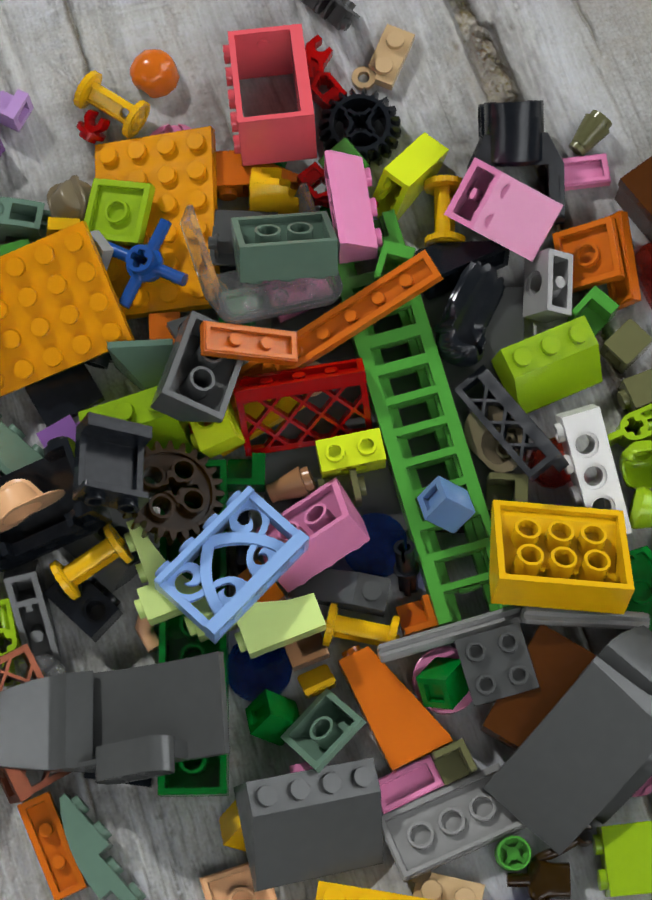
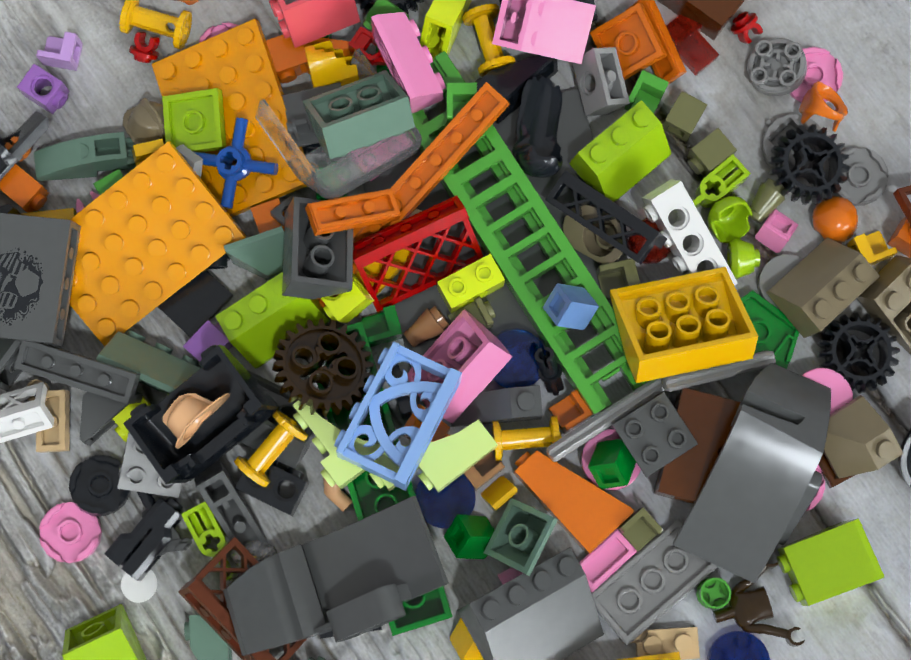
camera: 20 degrees left, 5 degrees up
(110, 463) = (264, 358): black panel -> none

